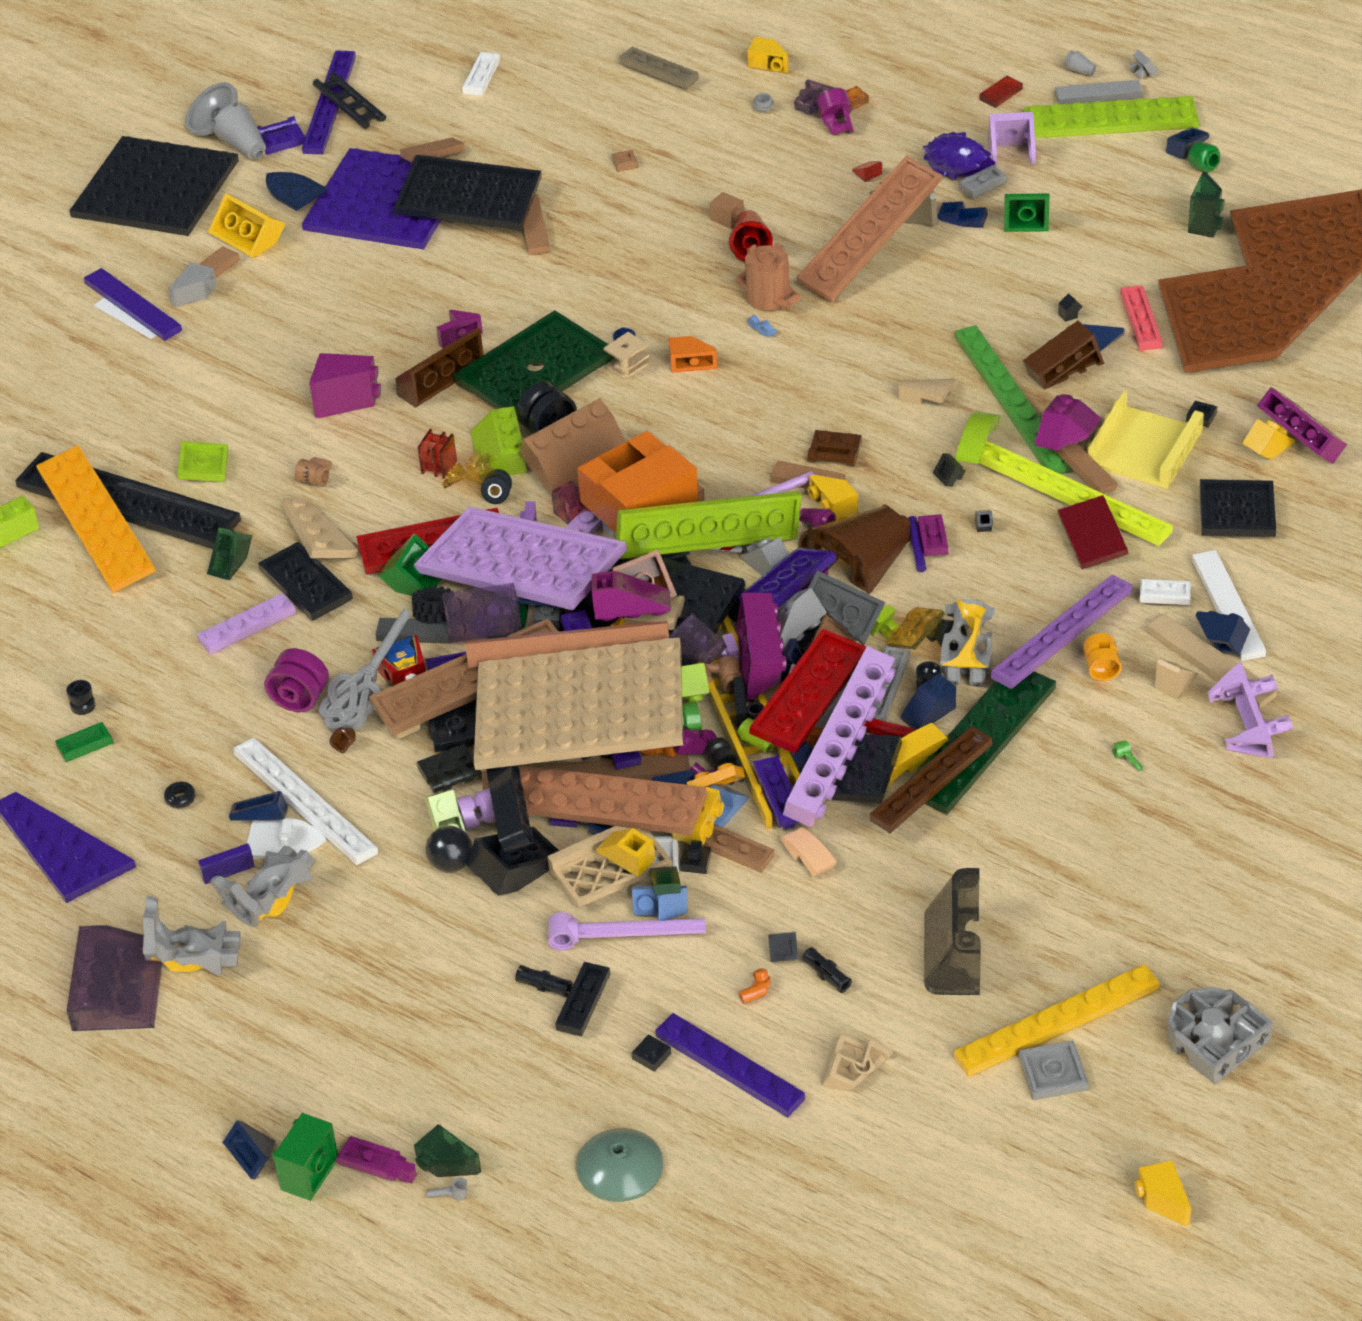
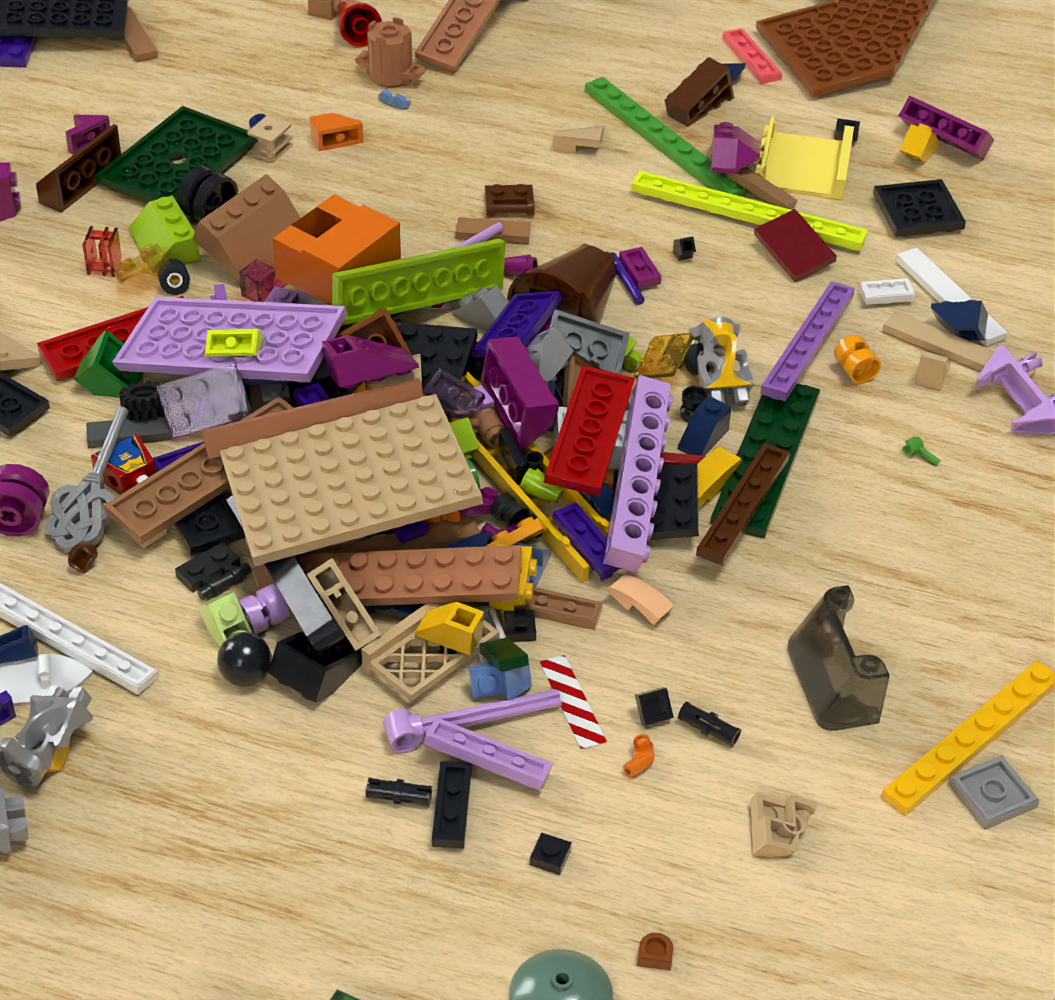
camera: 20 degrees left, 0 degrees up
(518, 563) = (233, 342): none -> neon yellow slope
(541, 813) = (344, 604): none -> tan slope
(625, 962) = (487, 753): none -> lavender plate
(708, 1145) = (655, 951): none -> dark orange tile
(718, 931) = (573, 702): none -> sticker
(730, 1065) = (644, 851): dark purple plate -> none
(833, 495) = (528, 240): yellow slope -> none
(948, 470) = (631, 206): pearl dark grey tile -> none
(975, 436) = (648, 173): lime slope -> none
(1068, 308) = (683, 53): black piece -> none

